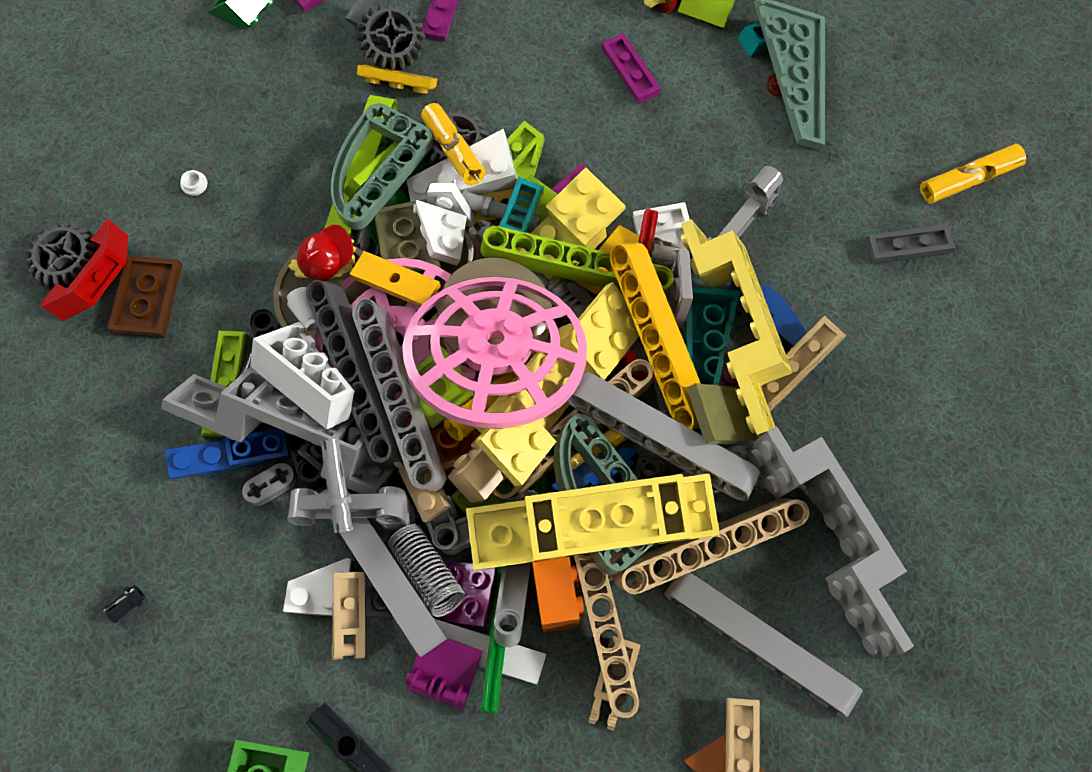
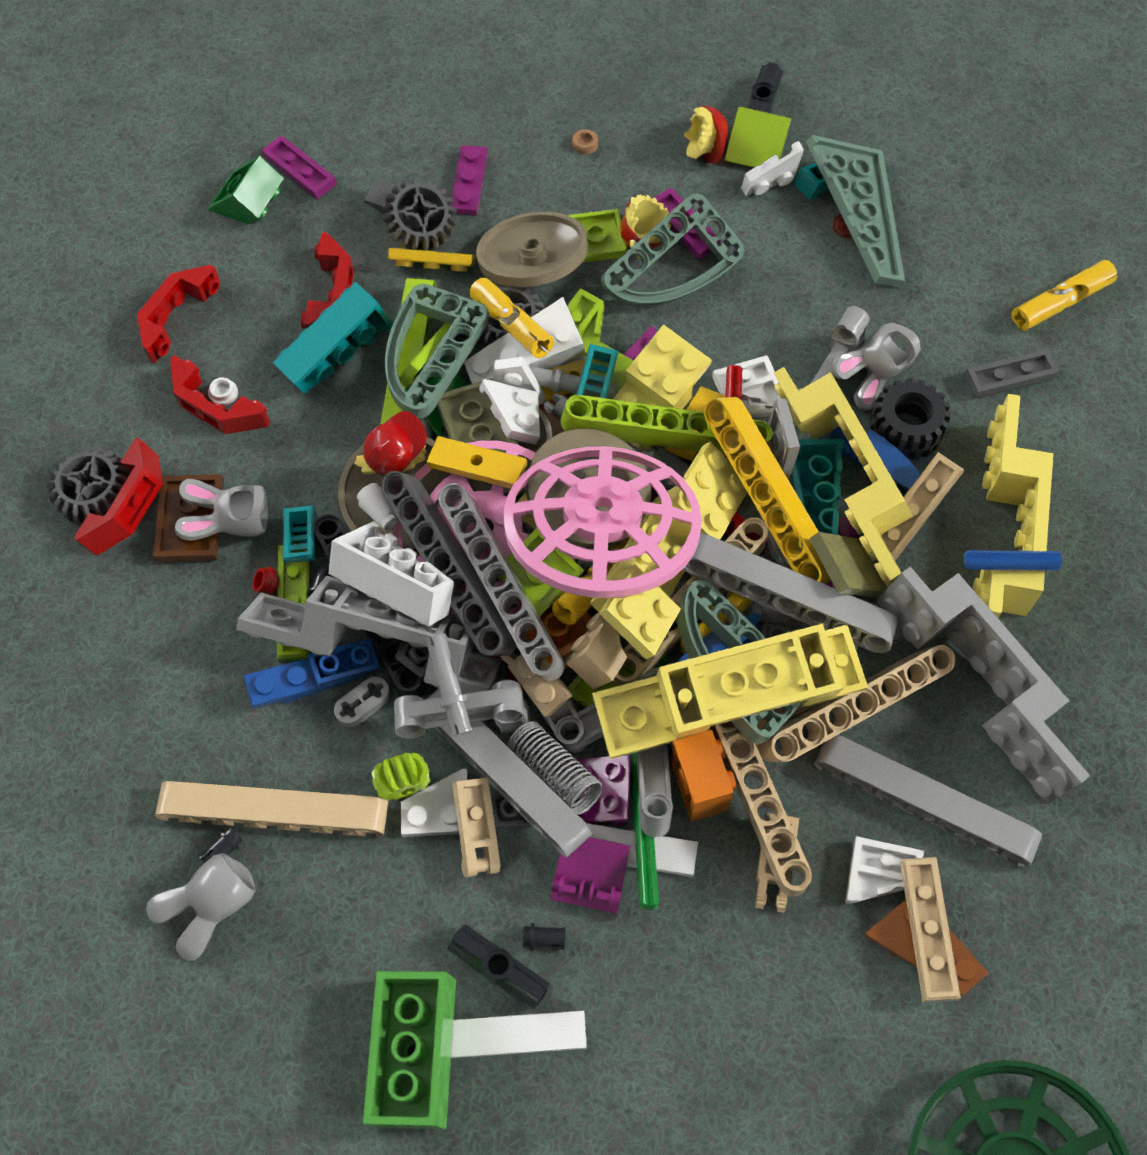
camera: 10 degrees left, 5 degrees down
(107, 649) = (214, 892): none -> light grey piece
(161, 88) = (196, 282): none -> red slope
(174, 572) = (272, 807): none -> tan beam
(184, 295) = (237, 510): none -> light grey piece
(202, 363) = (266, 581): none -> red plate
(203, 208) = (241, 417): none -> red slope
(232, 308) = (299, 516): none -> teal slope
(289, 559) = (400, 776): none -> lime gear
(292, 122) = (335, 259): none -> red slope
(294, 145) = (333, 338): none -> teal wedge
(393, 724) = (543, 937): none -> black pin
(486, 79) = (532, 249): none -> dark tan dish
(549, 72) = (602, 234): none -> lime tile
(592, 66) = (639, 218): none -> light yellow hair
(610, 82) = (698, 221): none -> sand green beam
(704, 701) = (876, 869): none -> white wing
(719, 28) = (773, 172): none -> white wing
(790, 218) = (880, 359): none -> light grey piece
(812, 259) = (916, 400): none -> black tyre
(875, 429) = (1012, 560): none -> blue axle
(899, 348) = (1024, 480): none -> light yellow bracket

